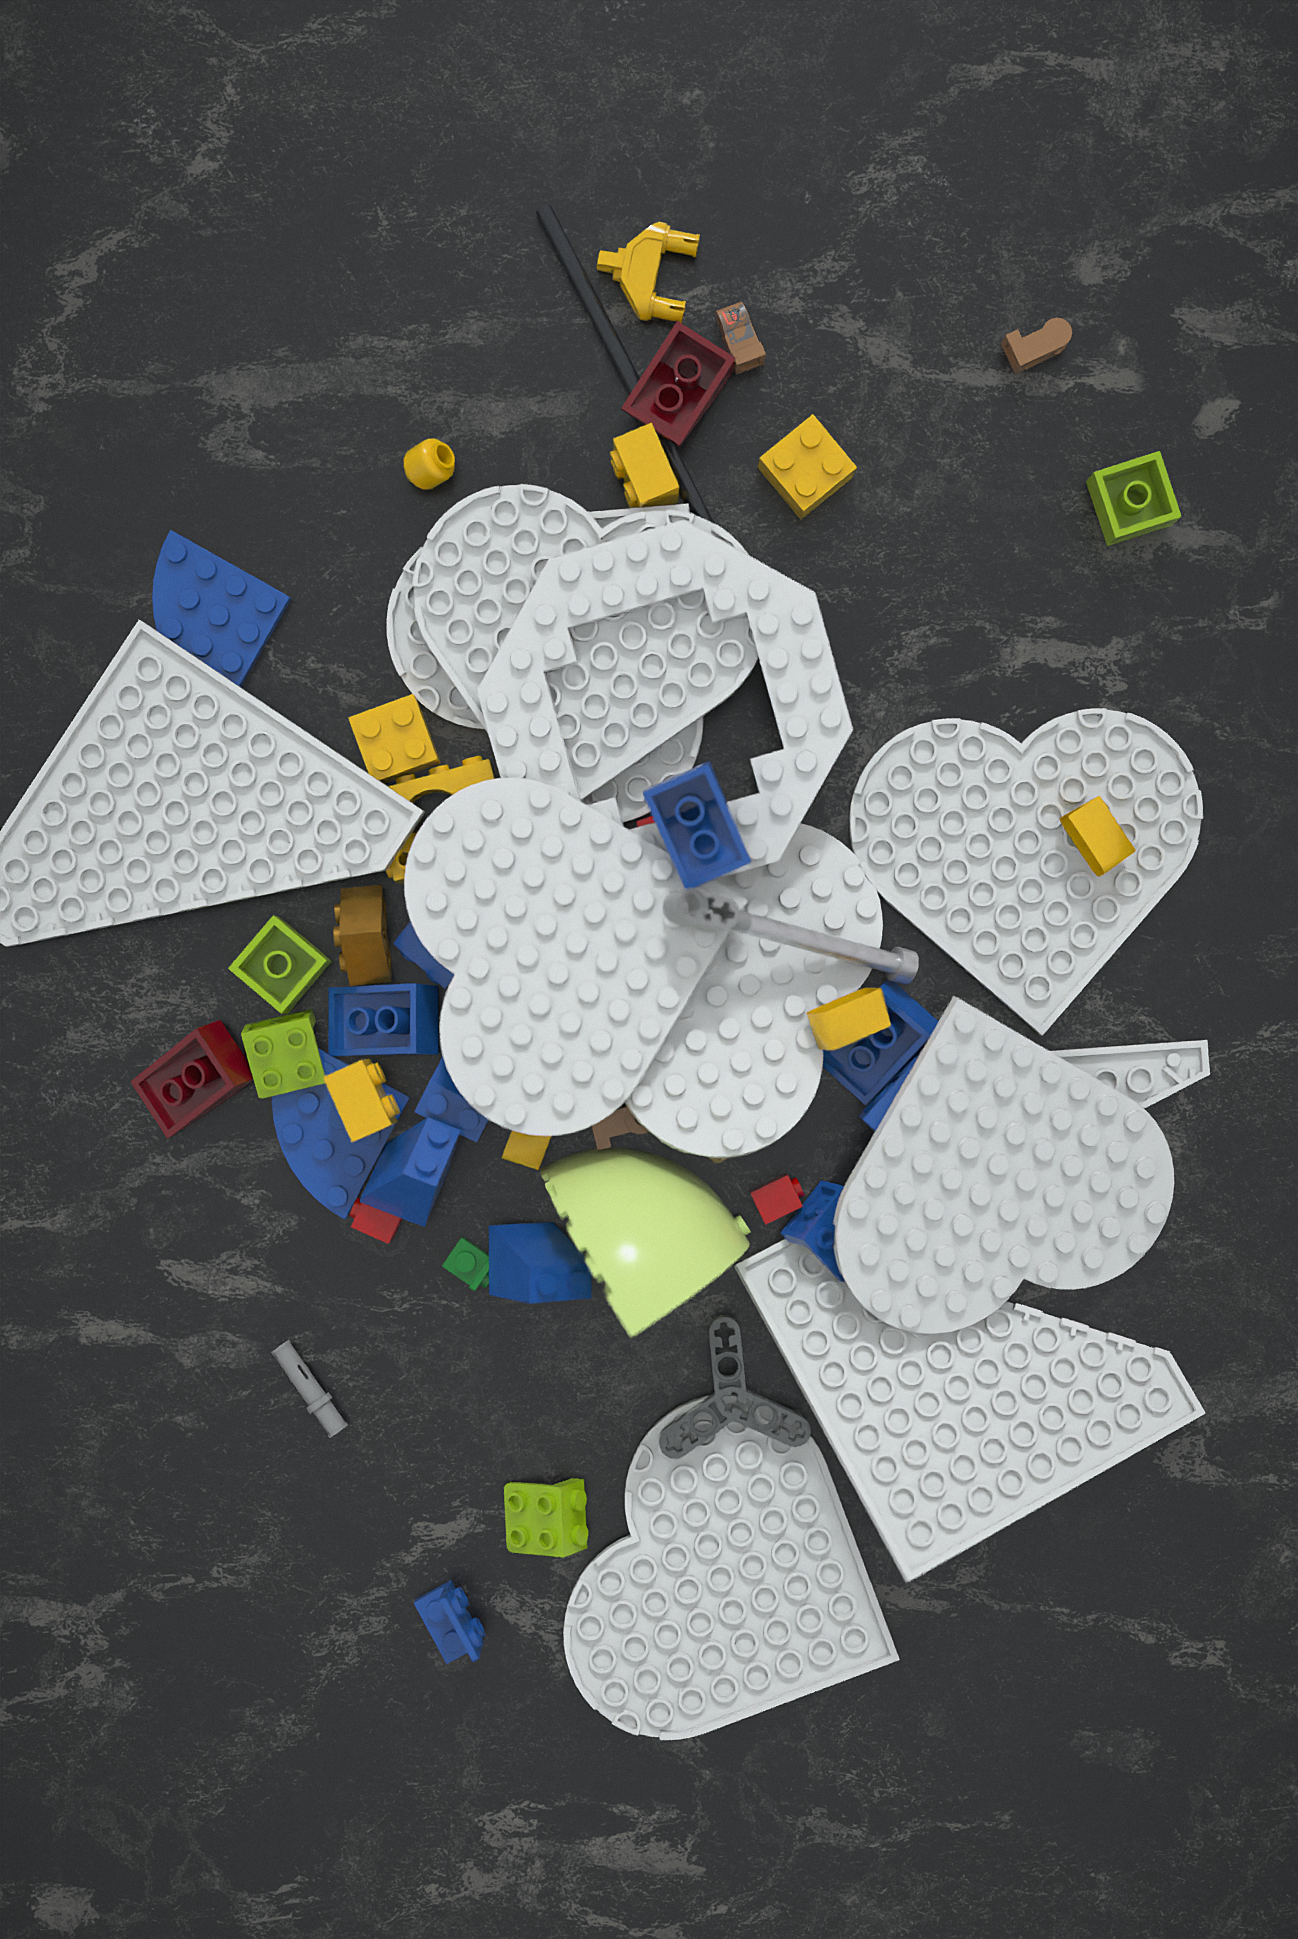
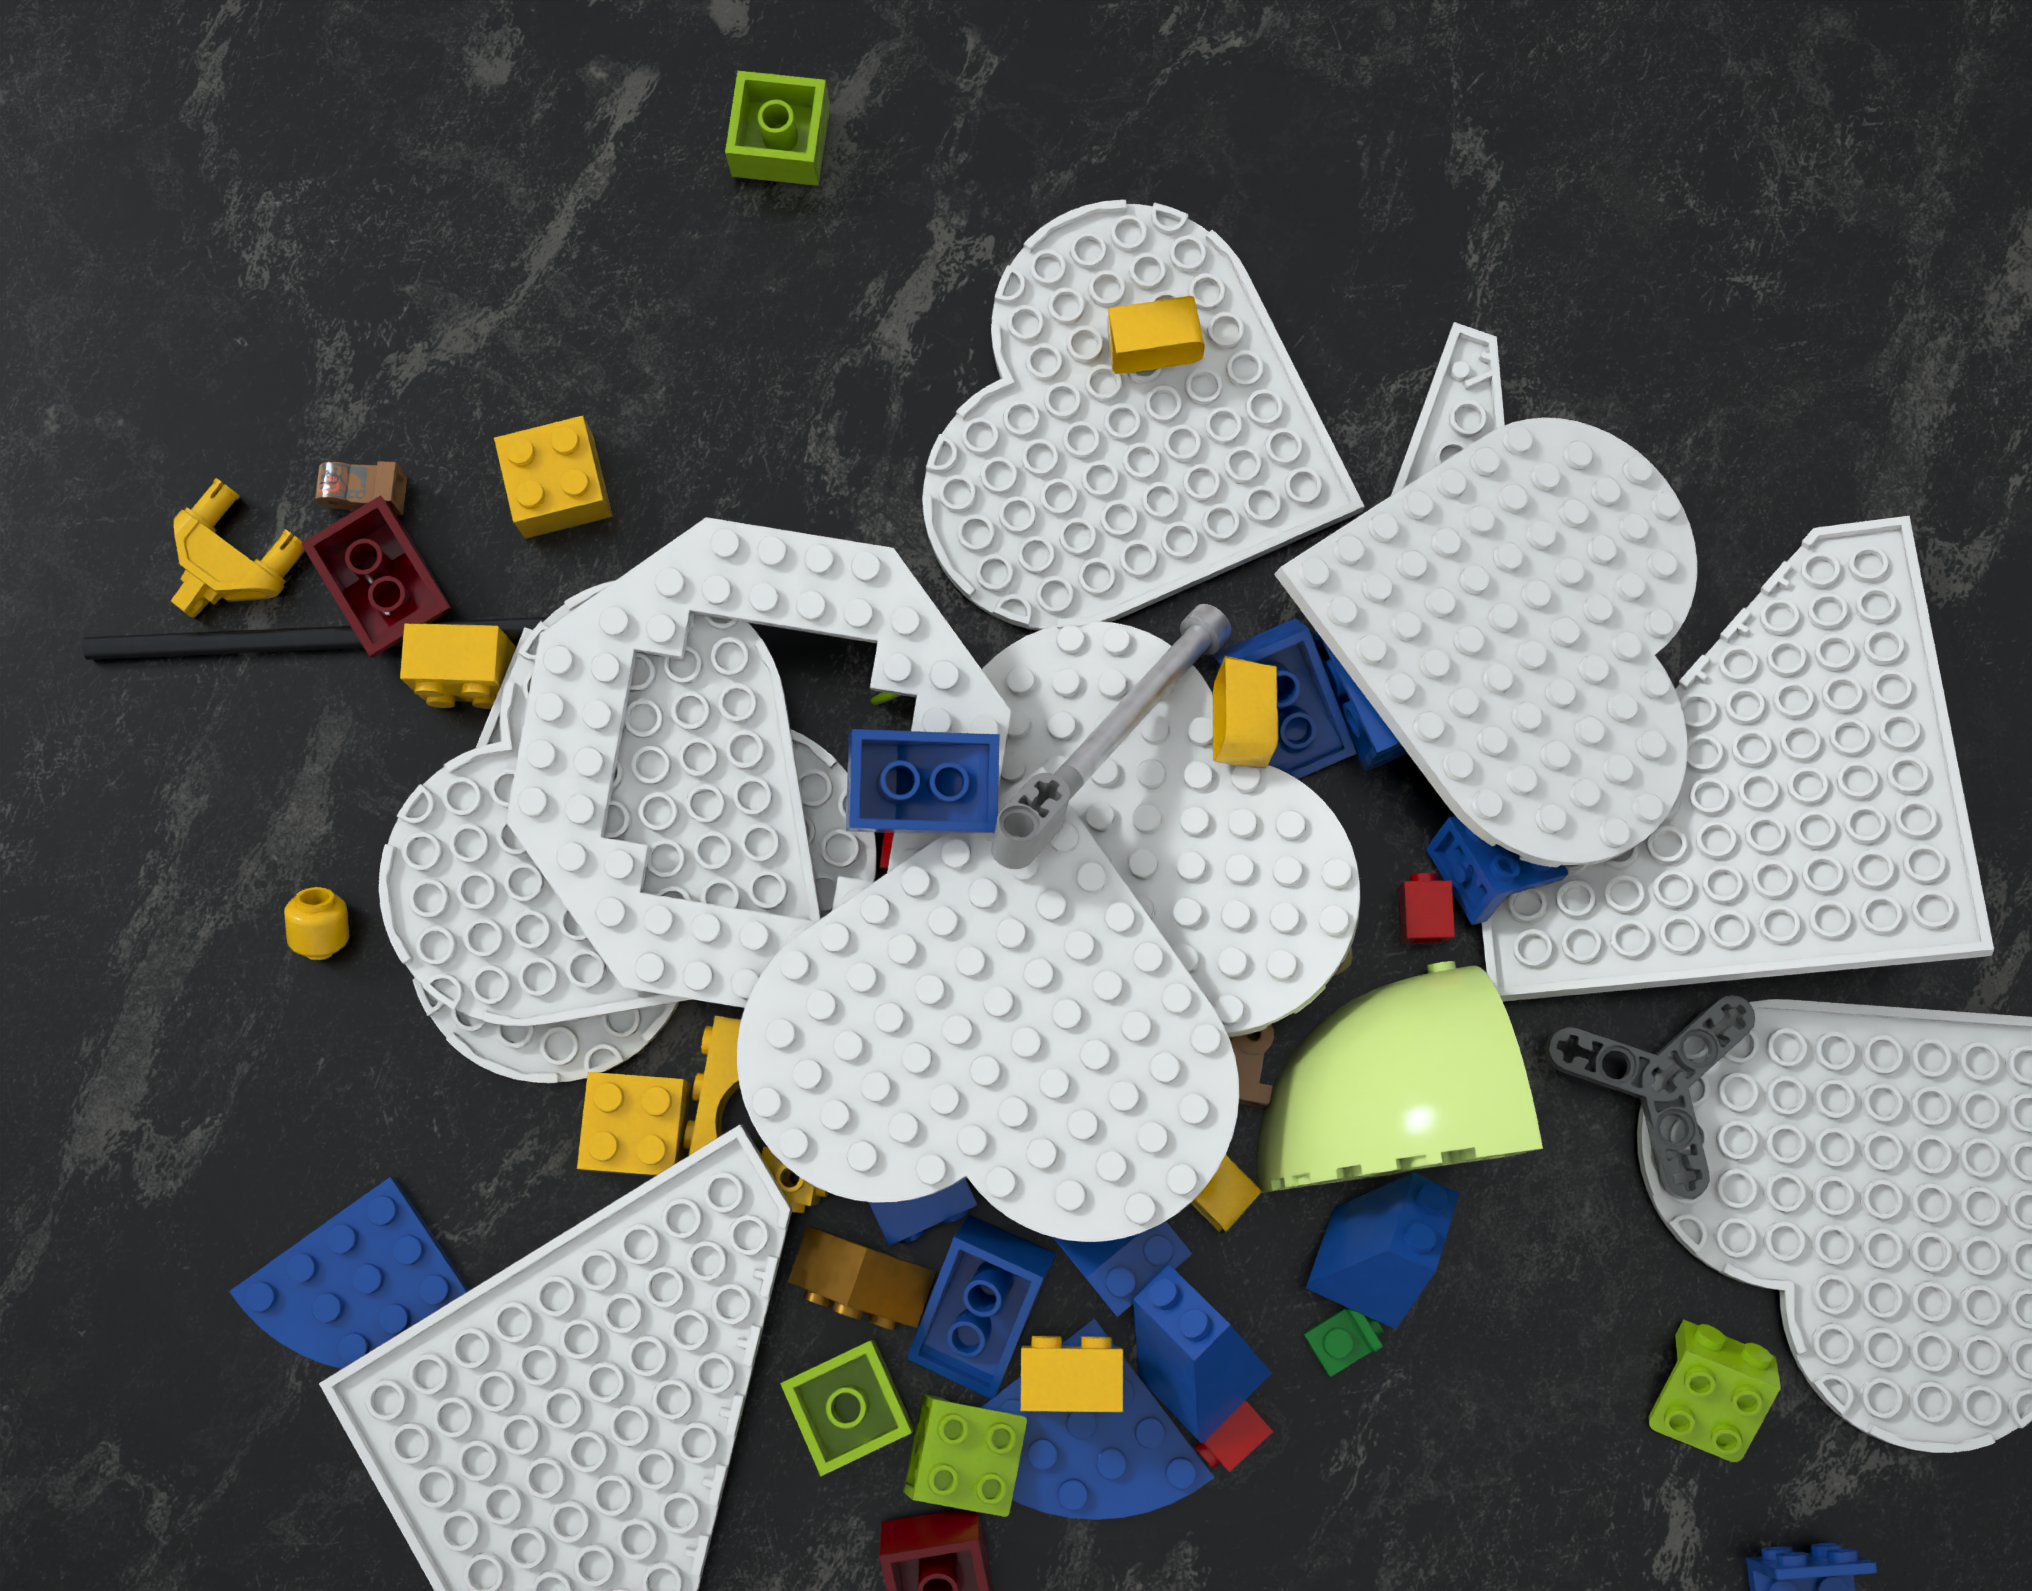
camera: 60 degrees left, 10 degrees down
(1038, 345) = (549, 160): medium nougat leg -> none

